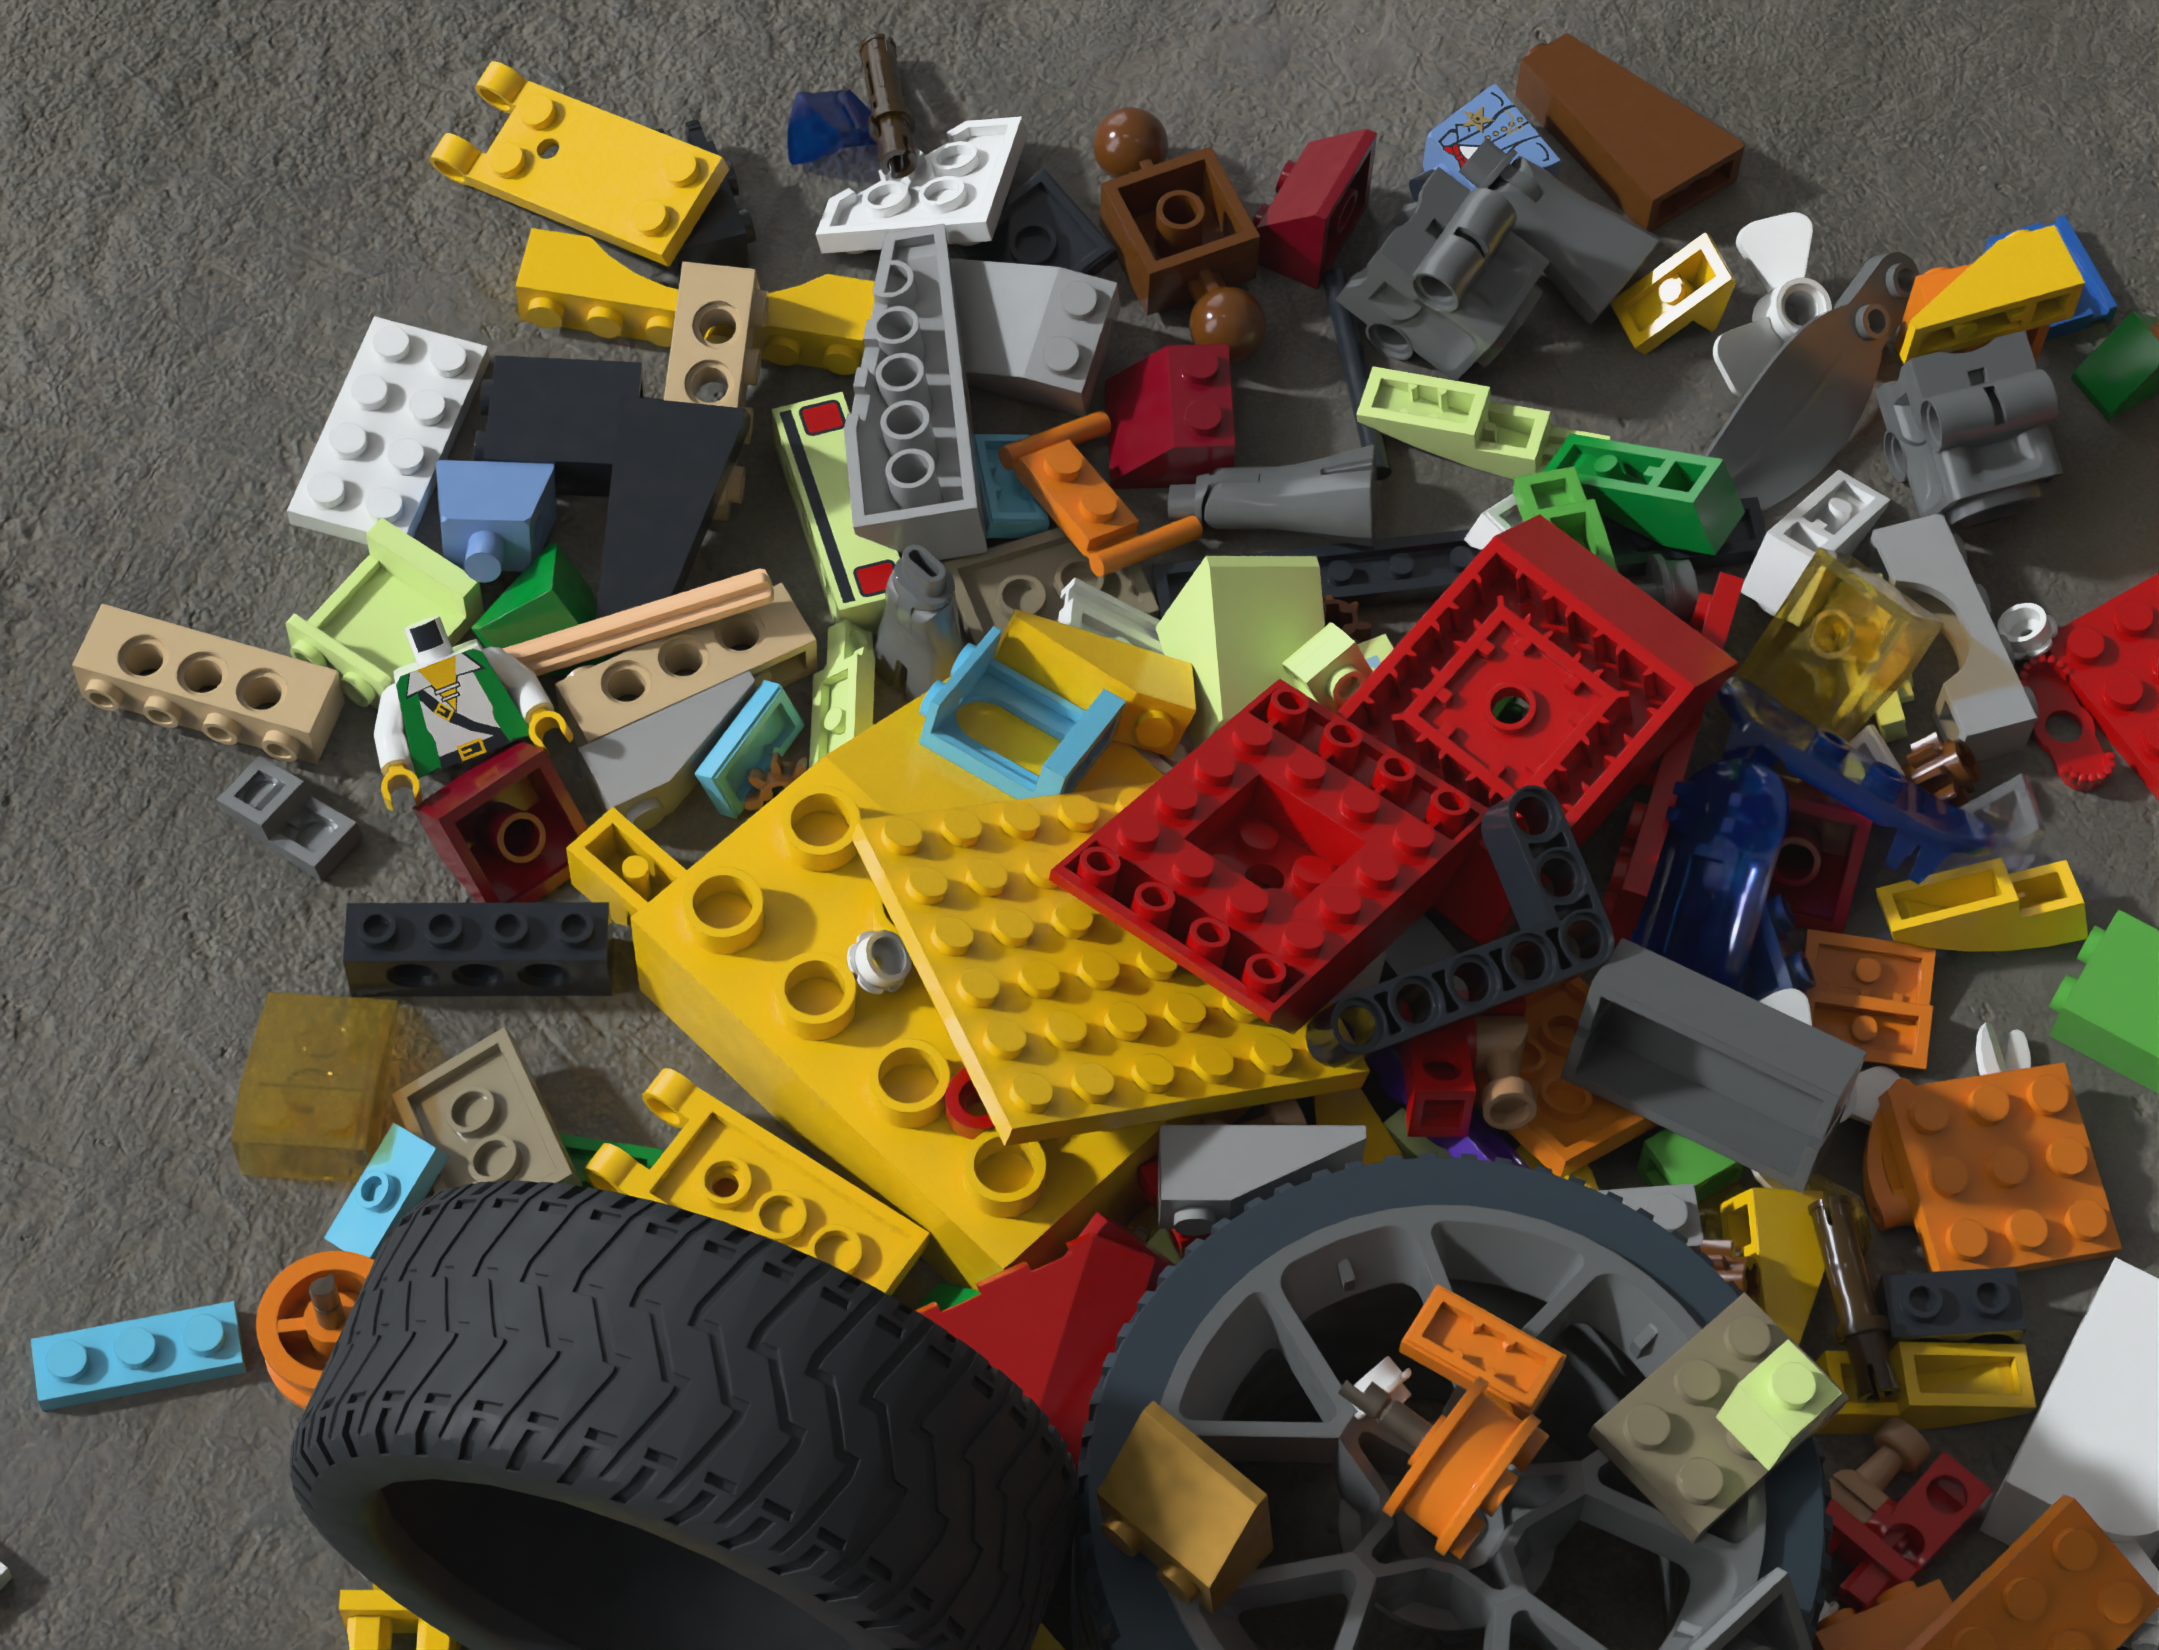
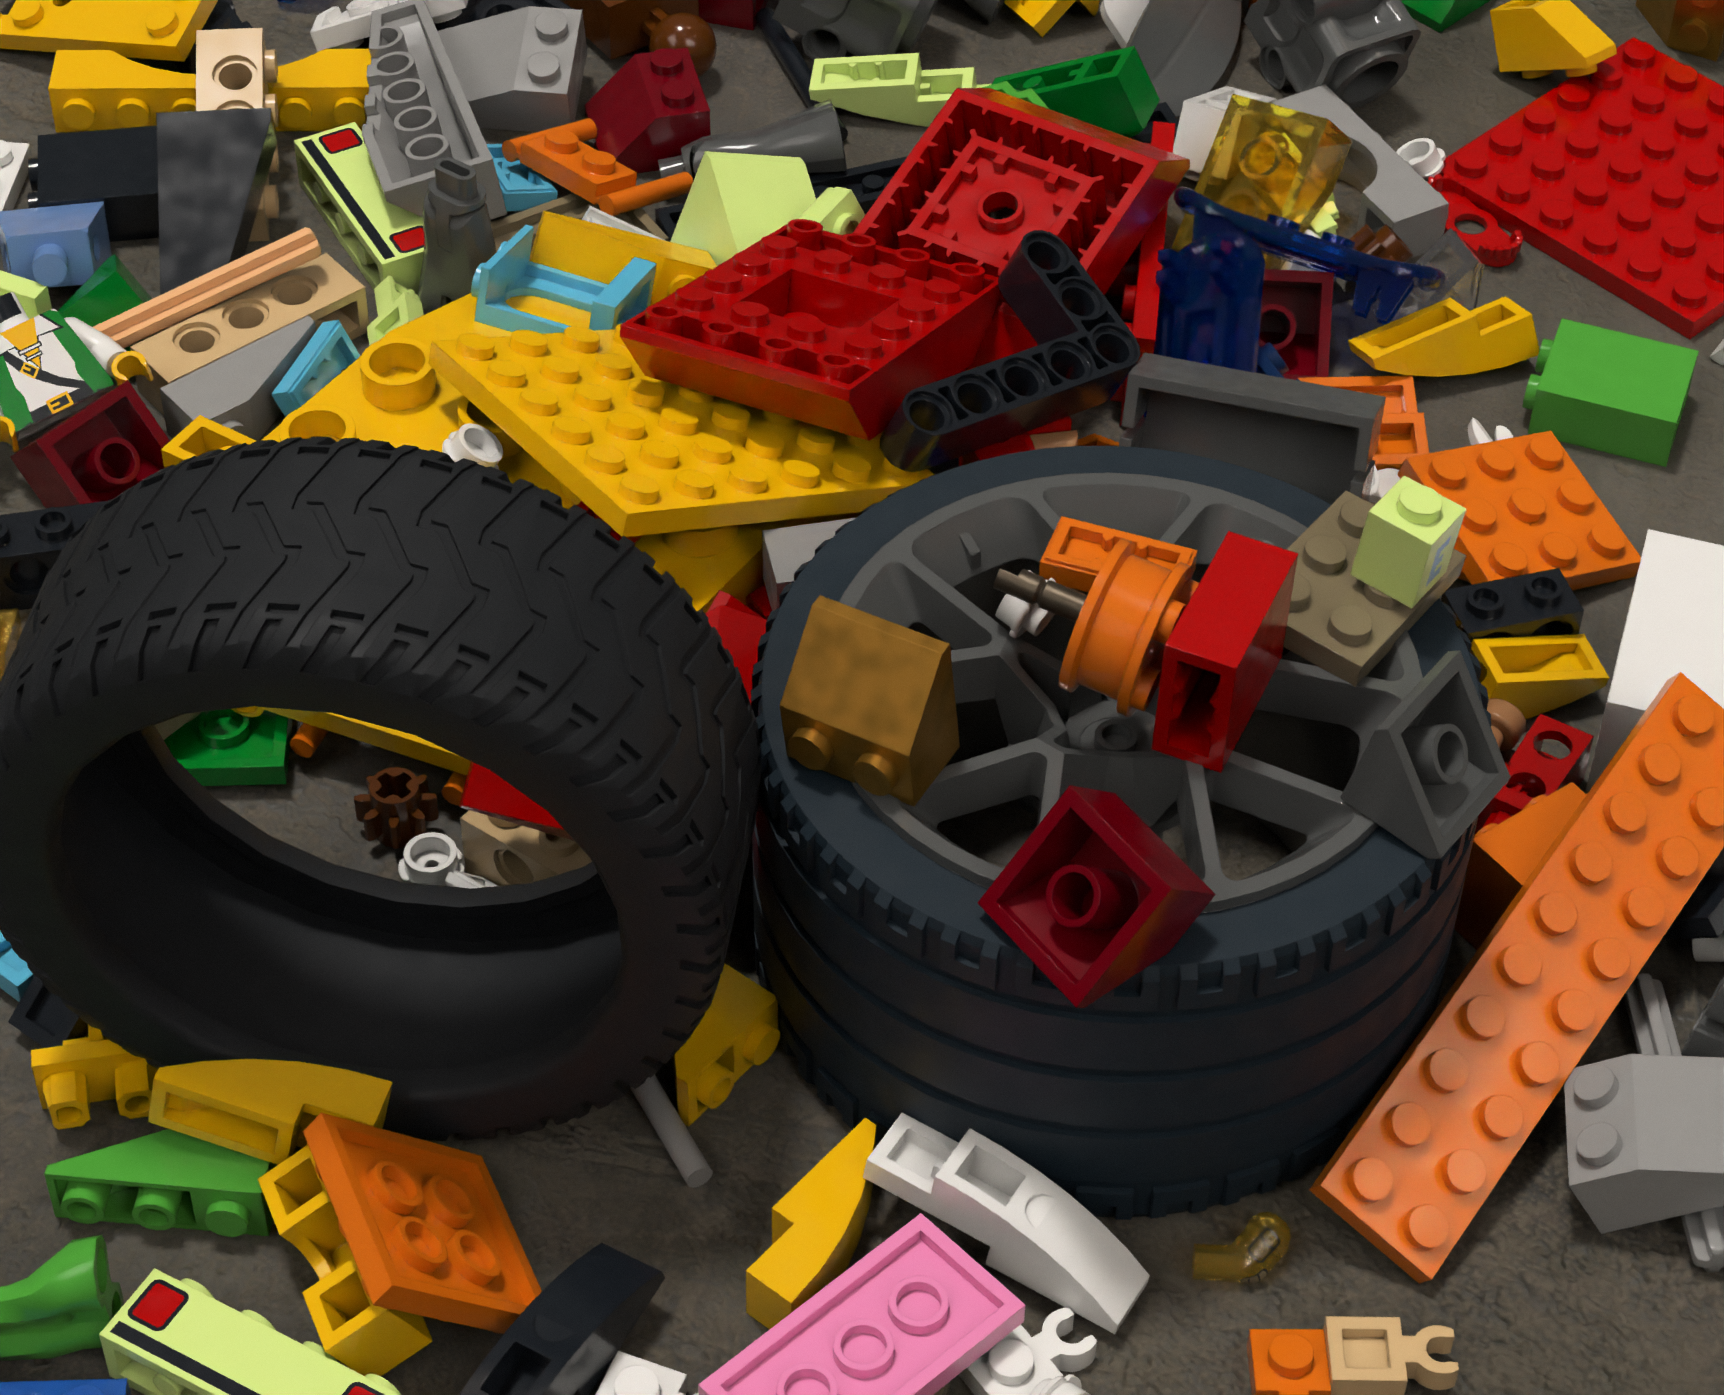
camera: 10 degrees left, 15 degrees down
(1555, 1511) = (1224, 651): none -> red brick

